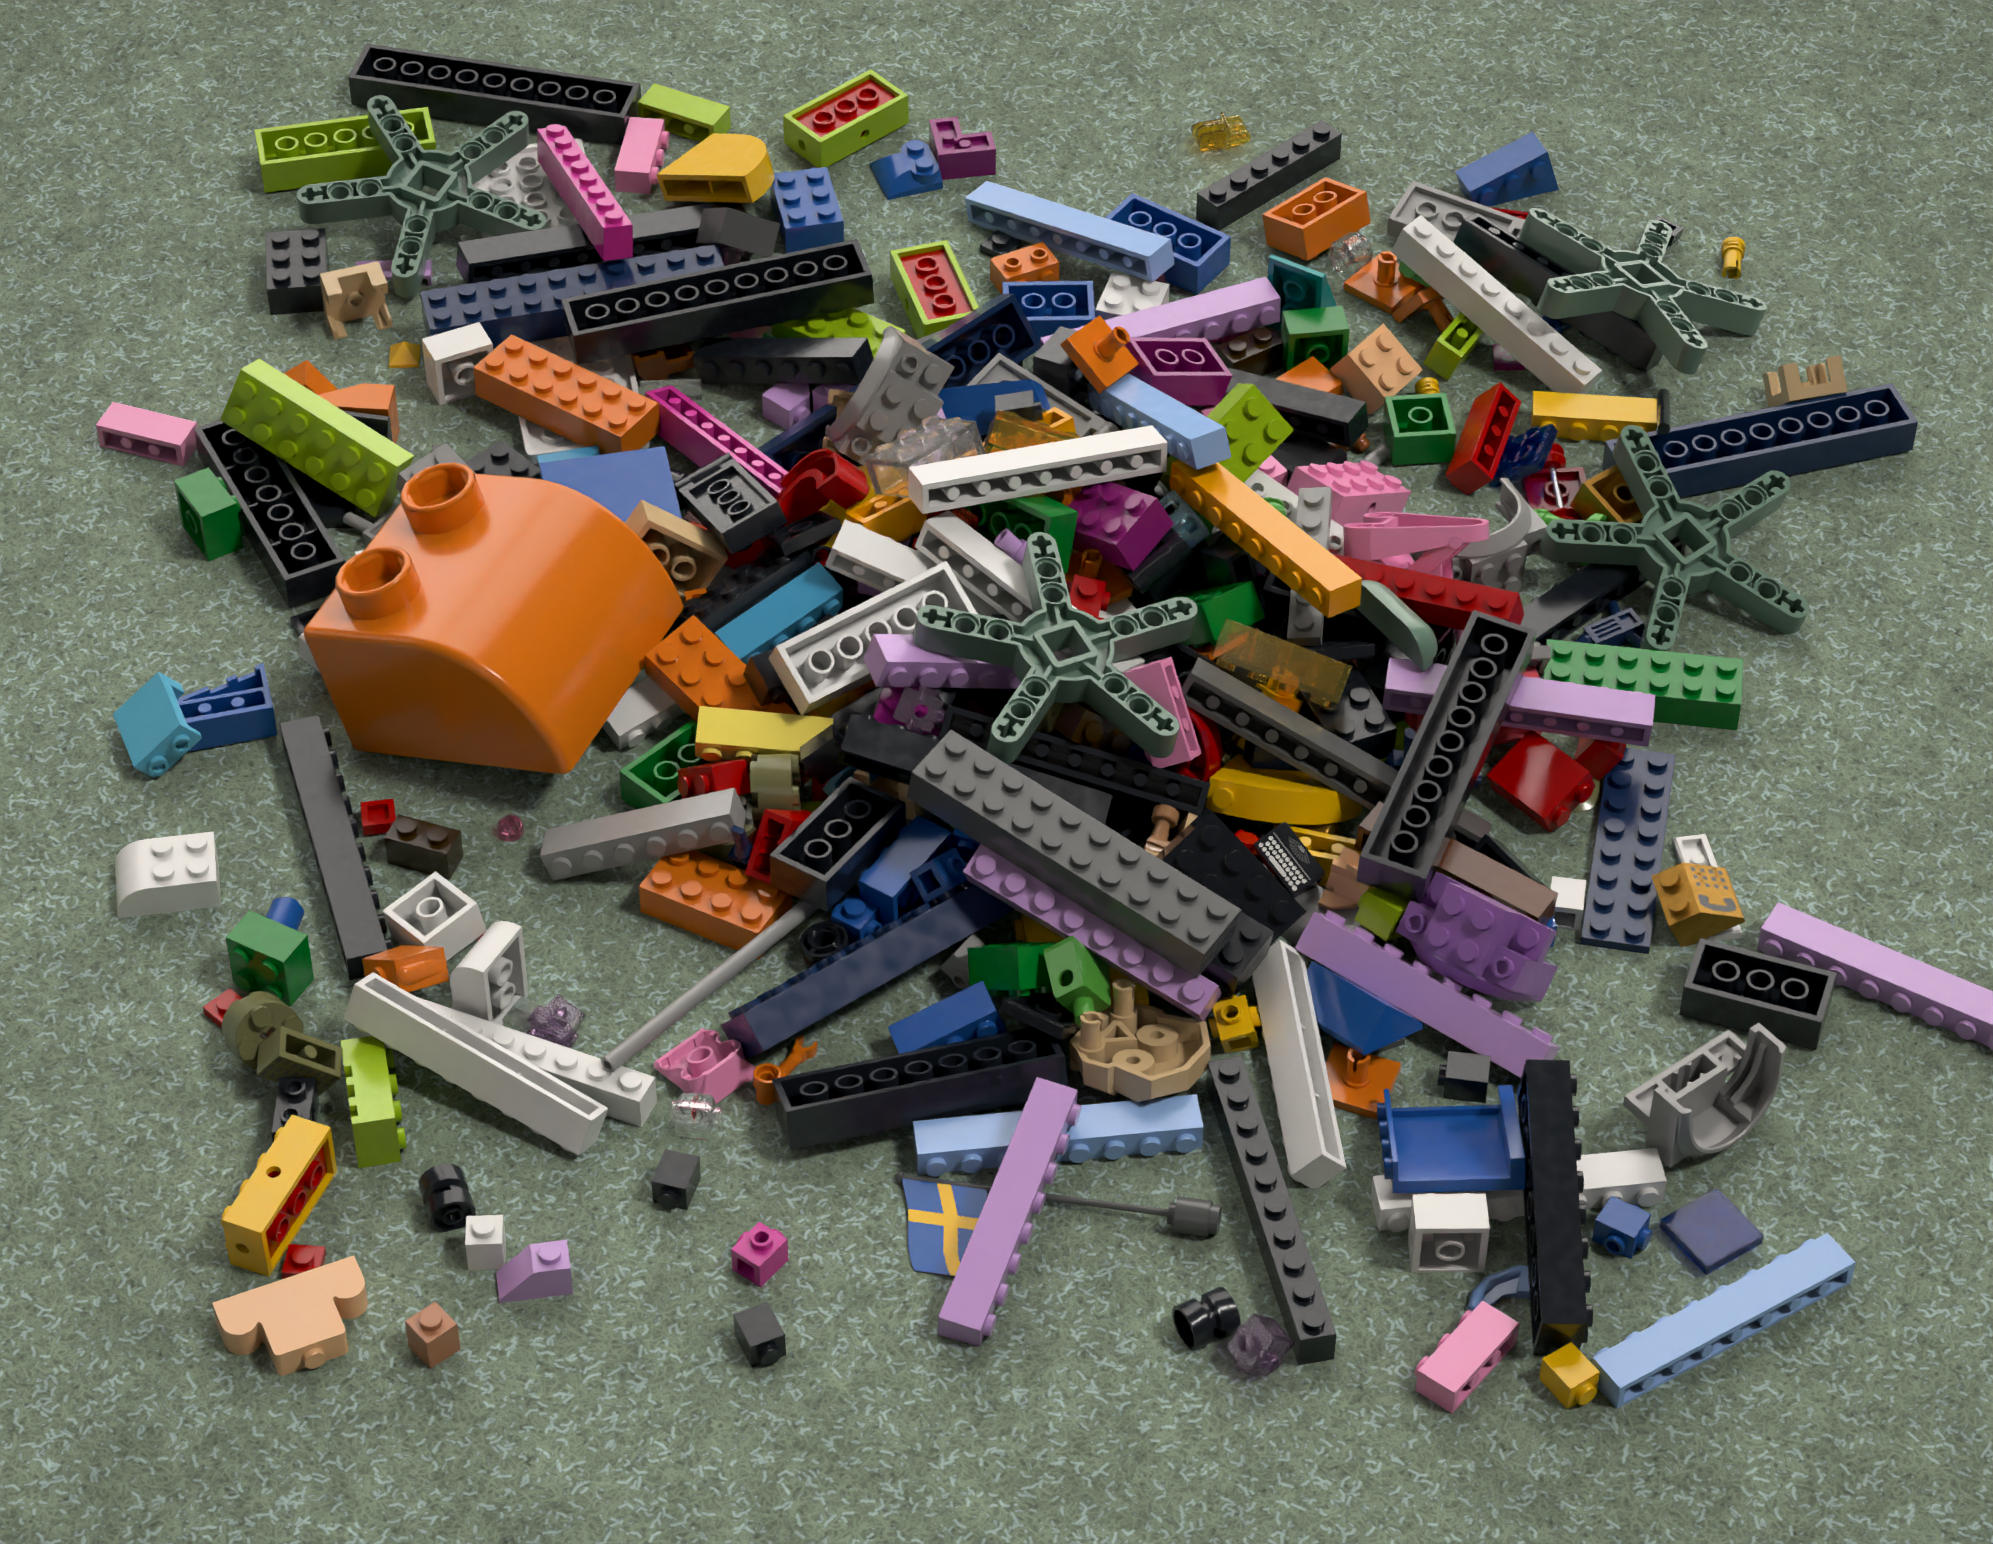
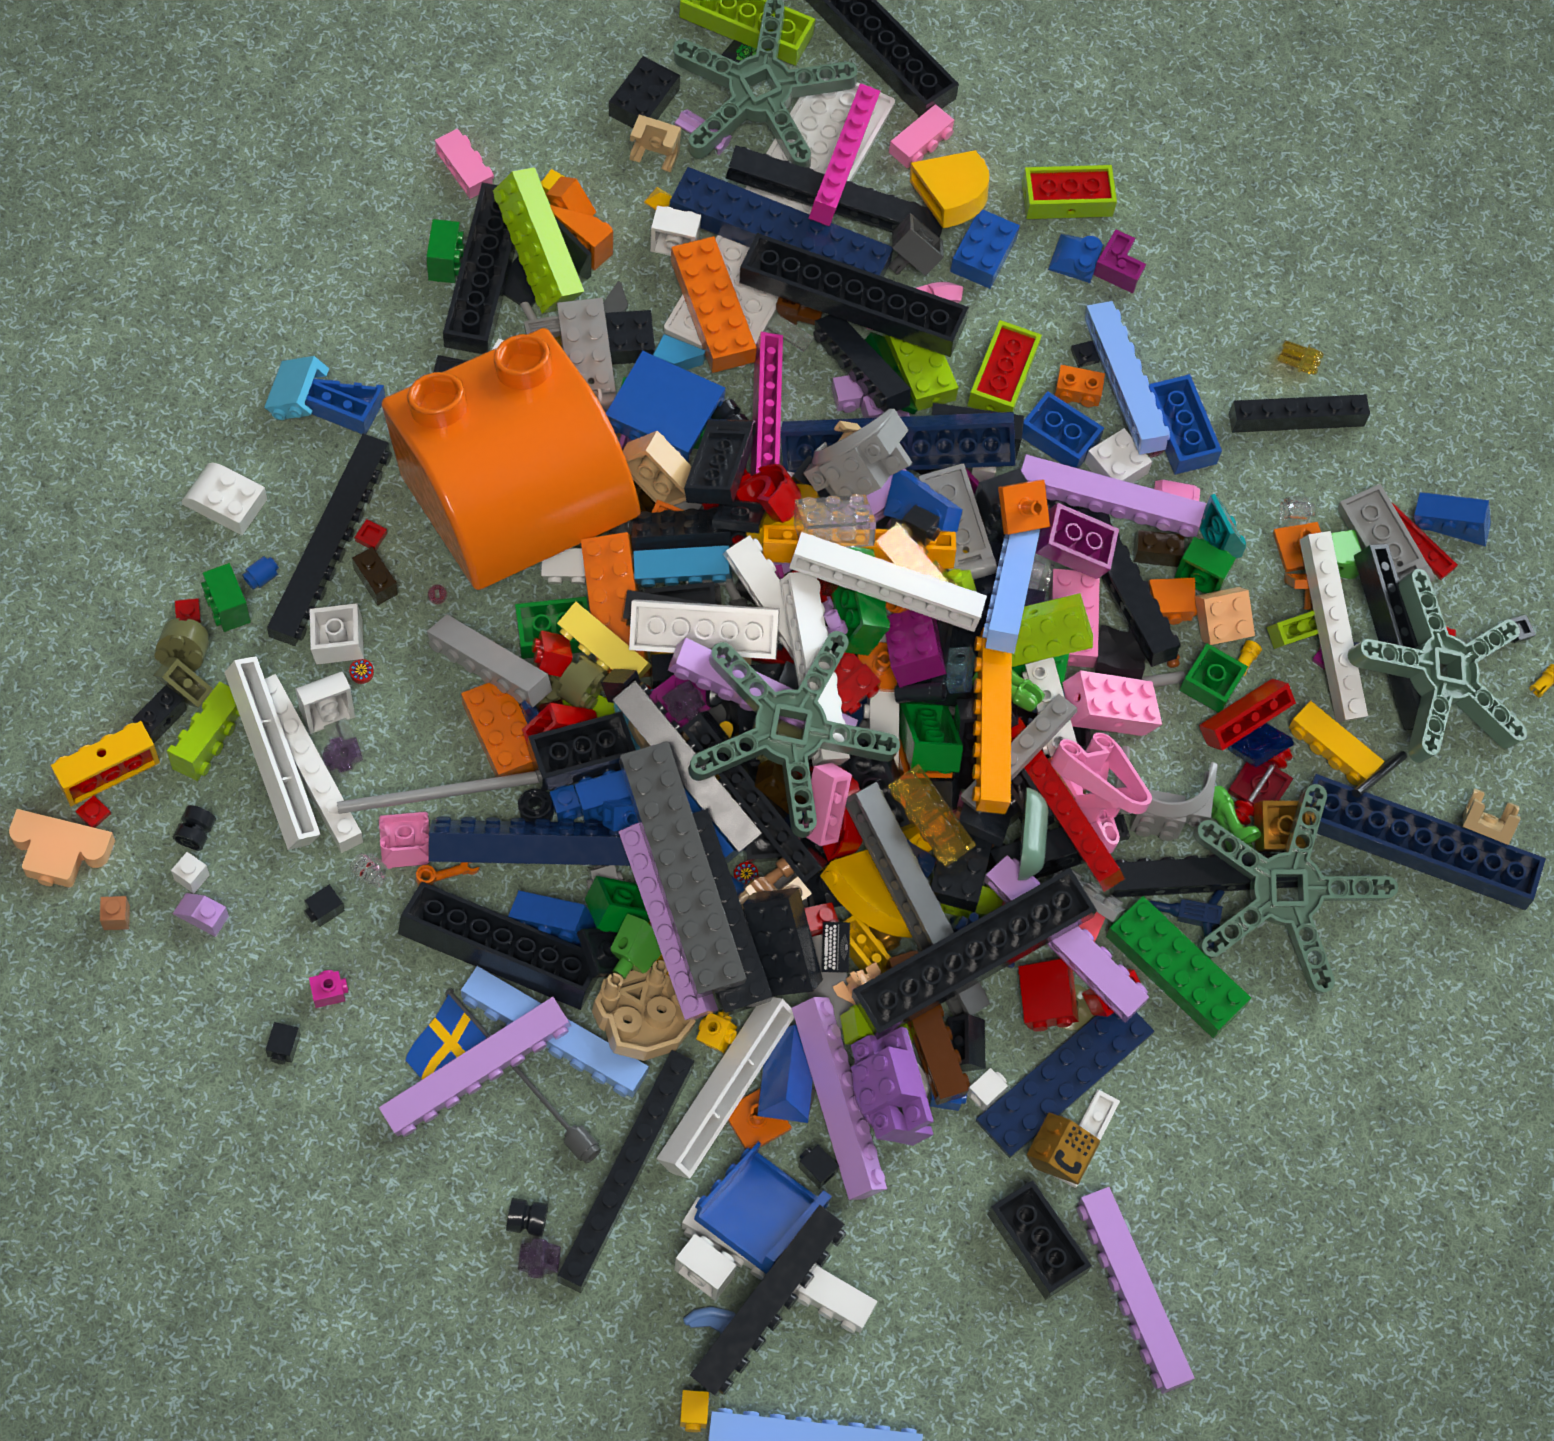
camera: 30 degrees right, 20 degrees up
(409, 966) = (289, 658): orange torso -> none
(684, 113) = (975, 120): lime brick -> none
(1316, 218) = (1295, 470): orange brick -> none
(1466, 1356) = (648, 1351): bright pink brick -> none
(1622, 1228) = (814, 1336): blue brick -> none
(1693, 1108) = (931, 1292): light grey piece -> none
(1711, 1231) = (865, 1376): clear blue tile -> none

